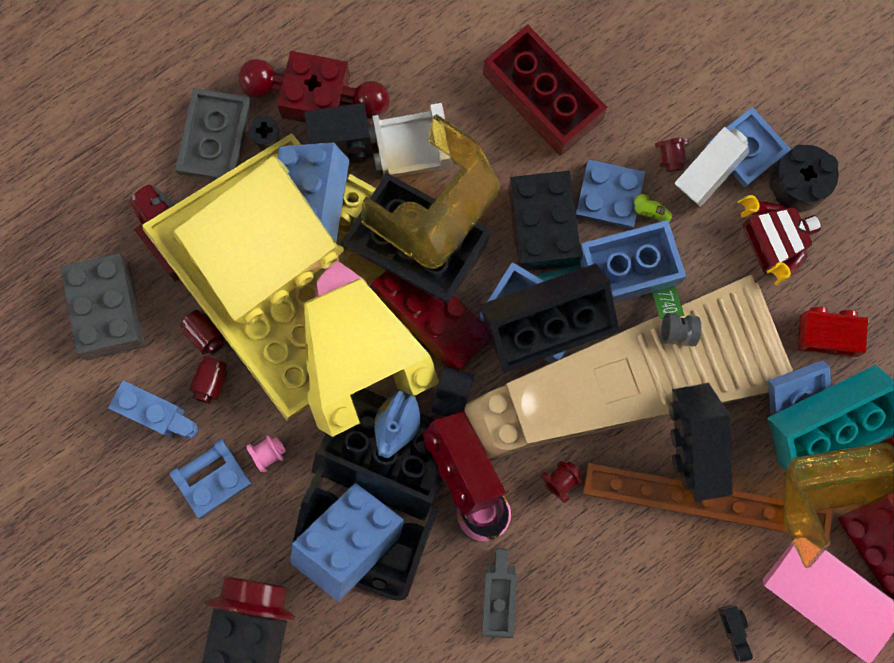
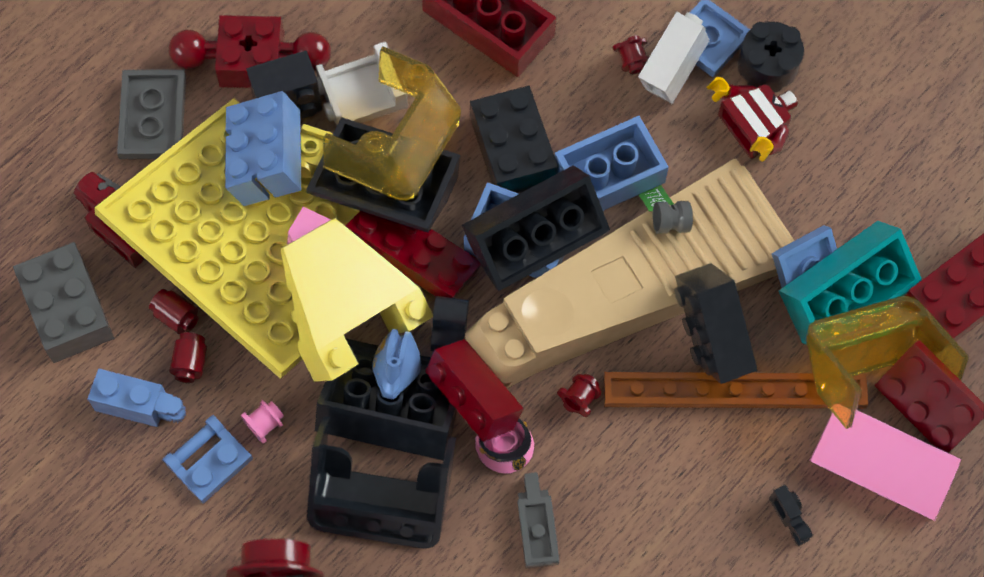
camera: 10 degrees left, 10 degrees down
(258, 129) = (198, 100): black bush -> none
(258, 242) = (222, 199): light yellow panel -> none
(346, 542) = (365, 488): medium blue brick -> none
(609, 194) = (575, 105): medium blue plate -> none
(651, 209) = (619, 110): lime arm -> none
(833, 333) = (830, 201): red brick -> none

